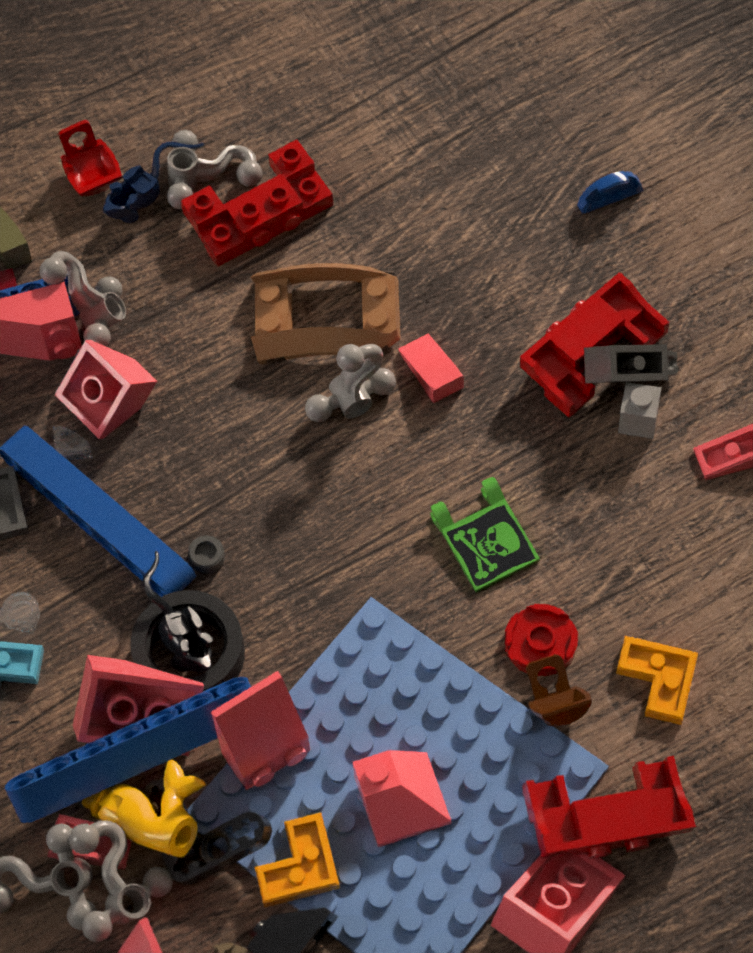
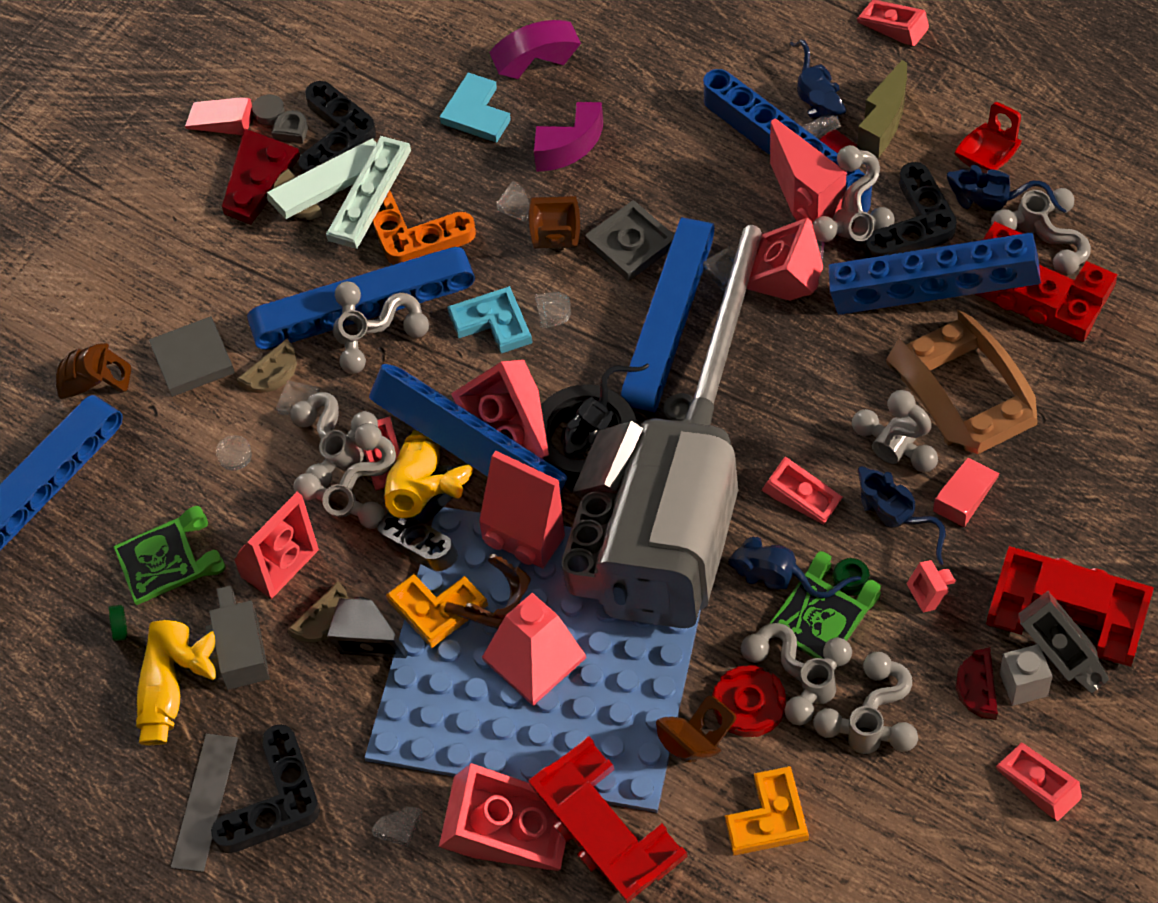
camera: 65 degrees right, 5 degrees down
(128, 254) = (925, 218): none -> black beam
(210, 273) = (934, 273): none -> blue brick
(251, 630) = (607, 459): none -> dark grey tile
(317, 587) = (662, 536): none -> piece
(345, 796) = (518, 584): none -> reddish brown helmet
(352, 496) = (801, 491): none -> coral slope
(417, 427) = (893, 503): none -> dark blue animal
(423, 554) = (774, 566): none -> dark blue animal
(463, 498) = (849, 568): none -> dark green tile
(512, 440) = (929, 585): none -> coral tile
(538, 544) = (835, 652): none -> light grey piece
(621, 453) = (976, 684): none -> dark red tile
(645, 534) = (901, 735): none -> light grey piece

